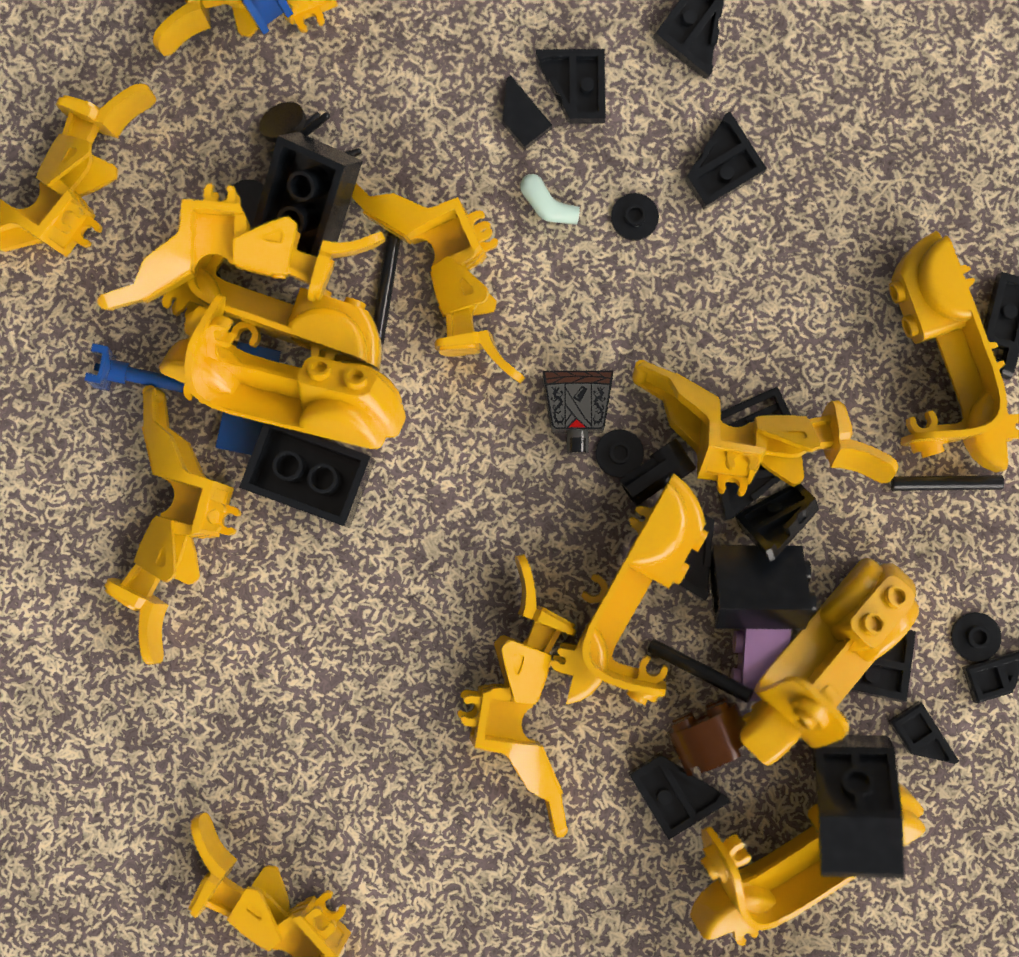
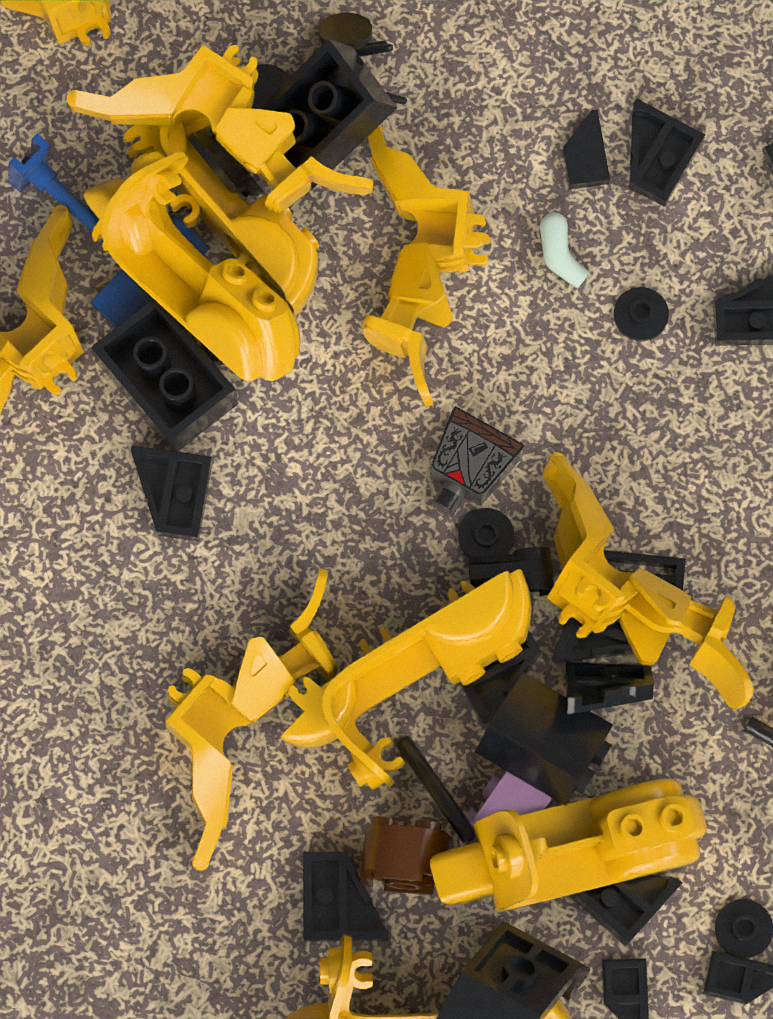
camera: 30 degrees right, 10 degrees down
(255, 284) = (224, 165): none -> black piece
(367, 555) = (174, 489): none -> black wing
(386, 285) = (351, 243): black bar -> none

